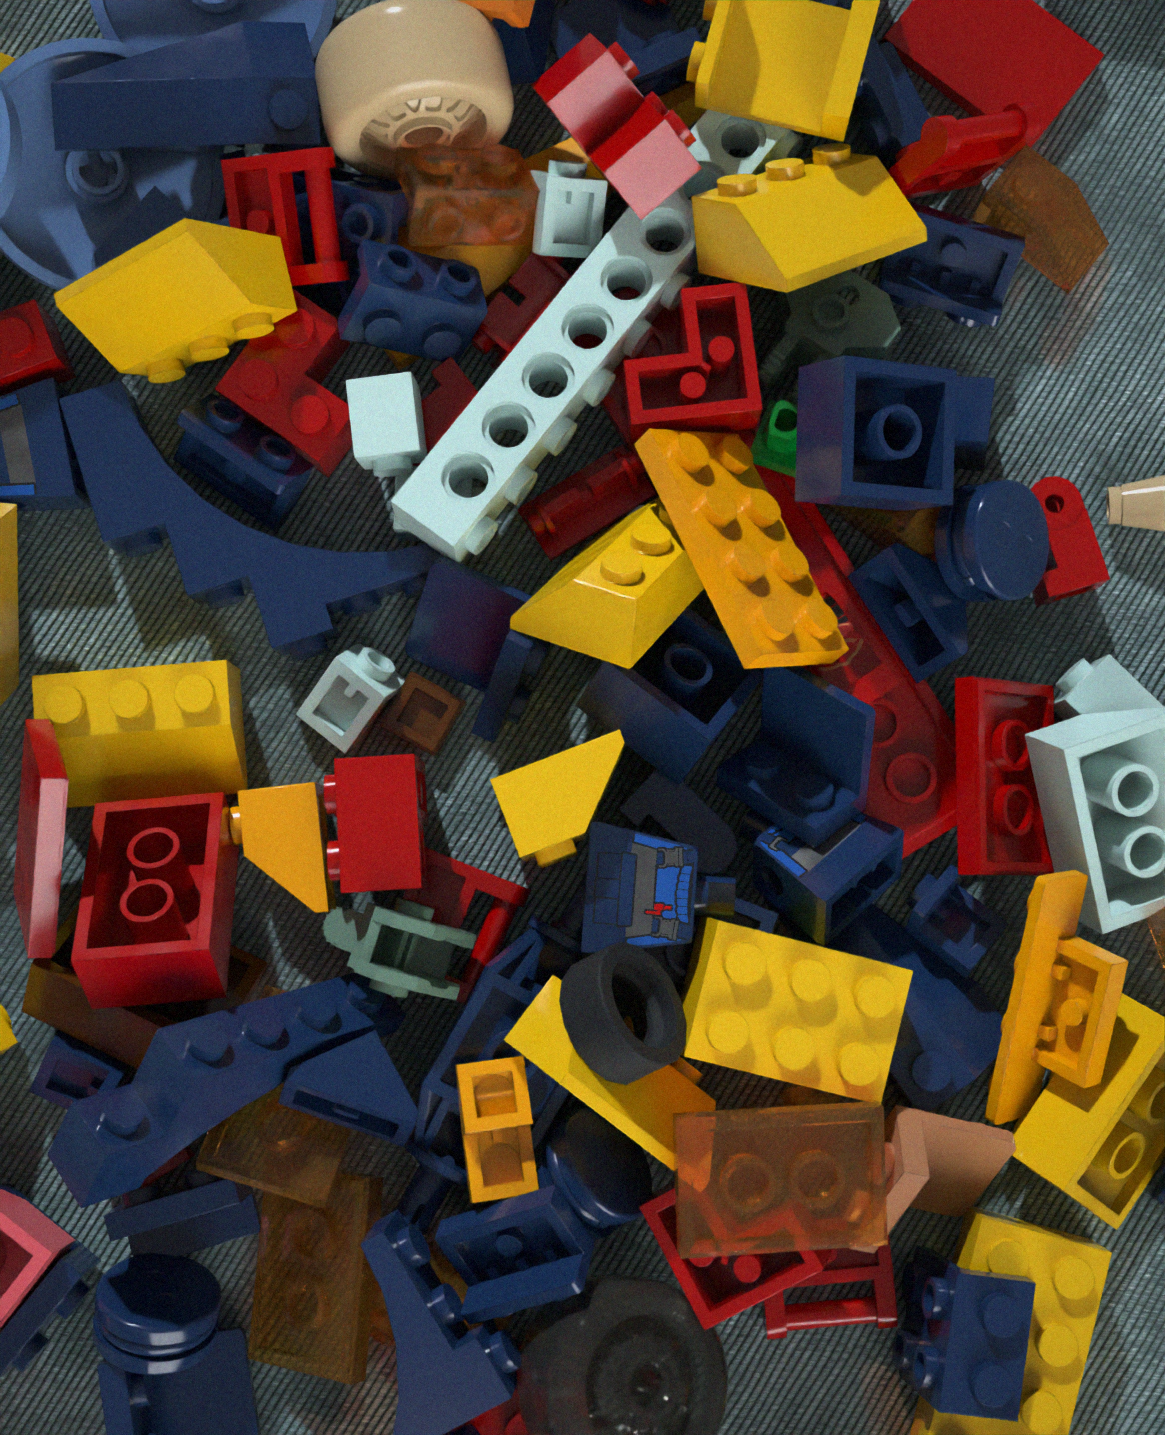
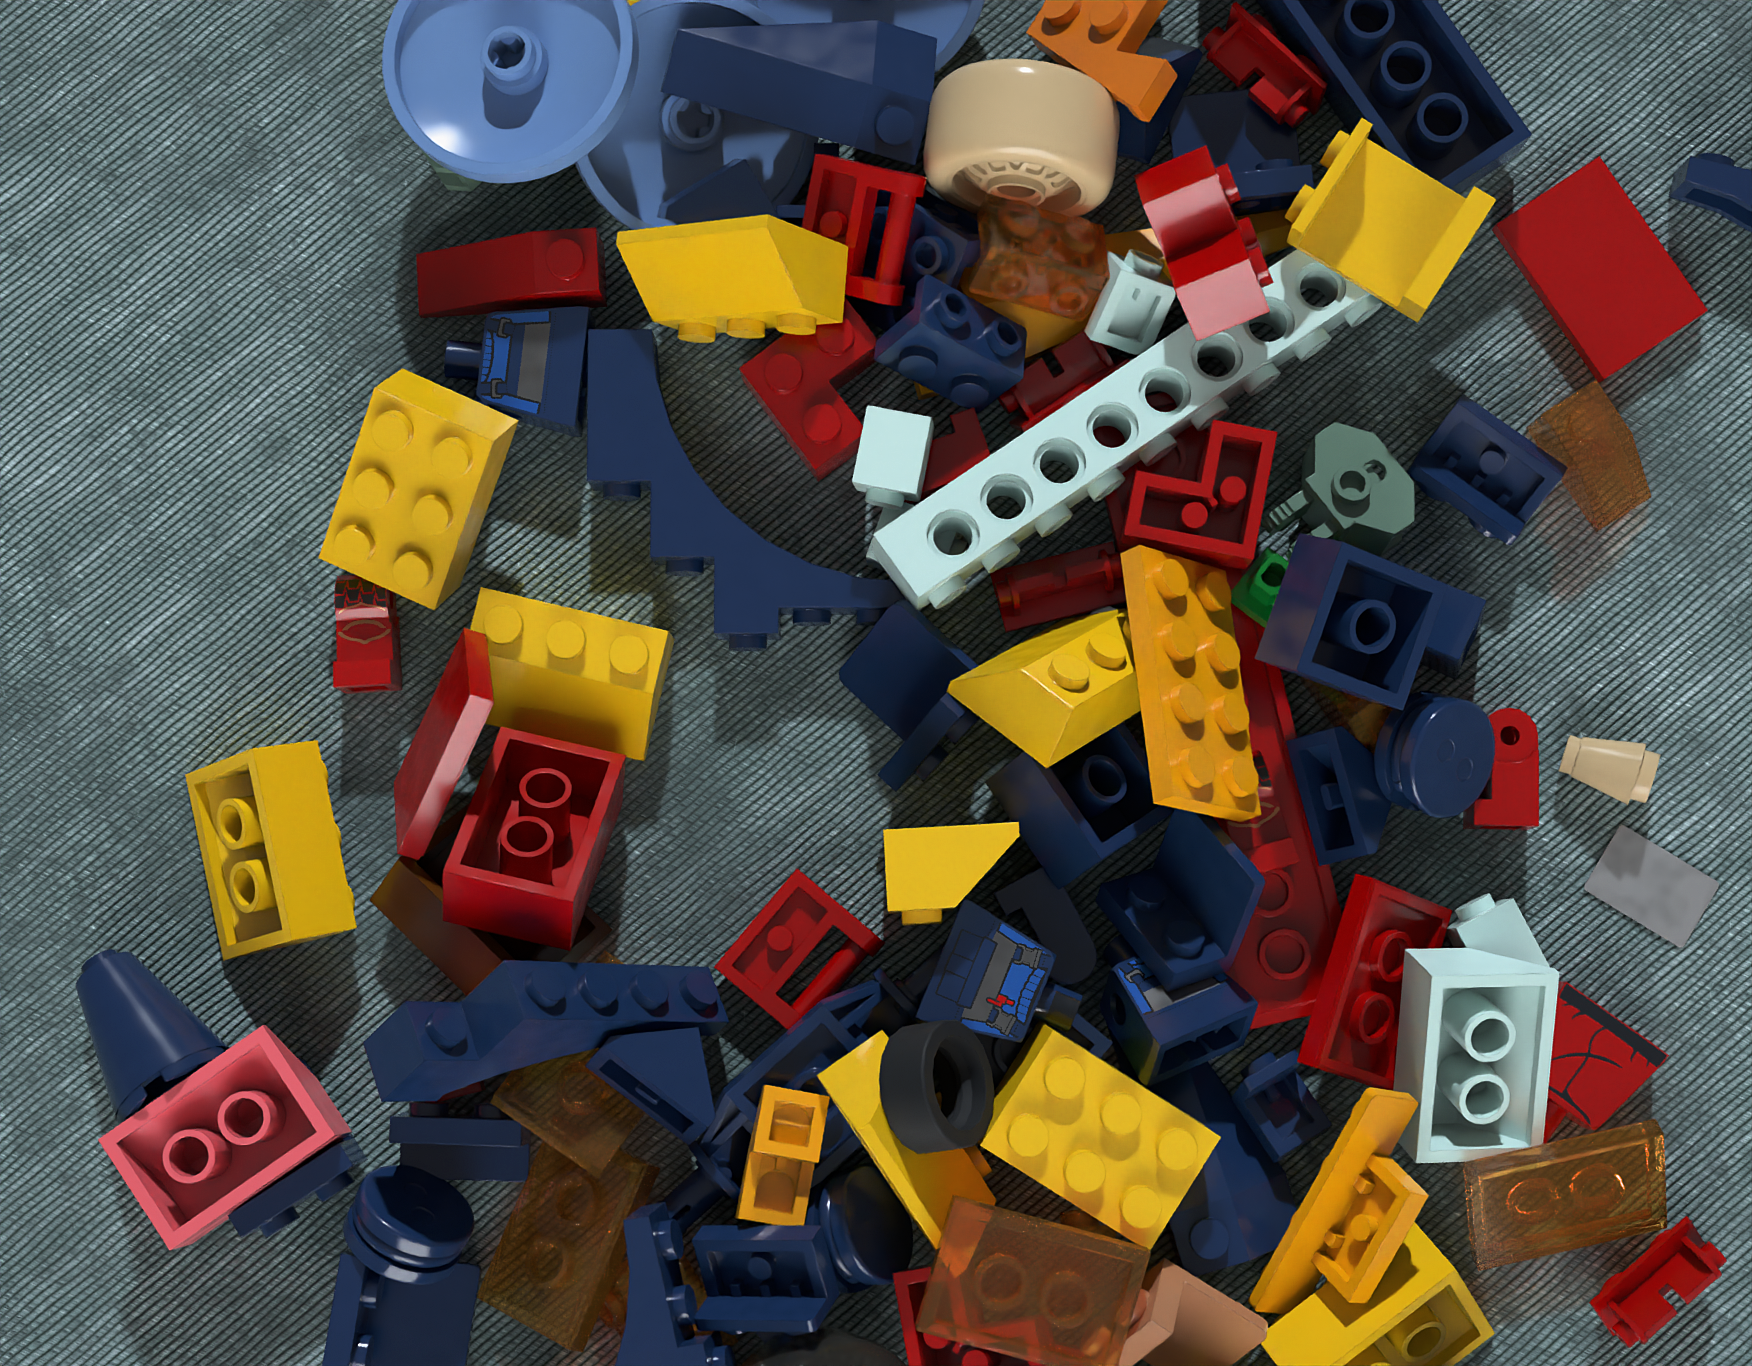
camera: 25 degrees right, 0 degrees up
(75, 1071) = (401, 974): dark blue bracket -> none
(241, 460) = (742, 442): dark blue bracket -> none
(287, 839) = (670, 819): light orange slope -> none
(350, 695) = (773, 701): light aqua bracket -> none
(379, 823) = (763, 833): red brick -> none
(398, 947) = (743, 955): sand green hinge -> none
(423, 714) = (836, 740): reddish brown tile -> none
(803, 220) = (1354, 389): yellow slope -> none
(887, 103) = (1480, 301): dark blue bracket -> none
(964, 150) = (1528, 367): red plate -> none

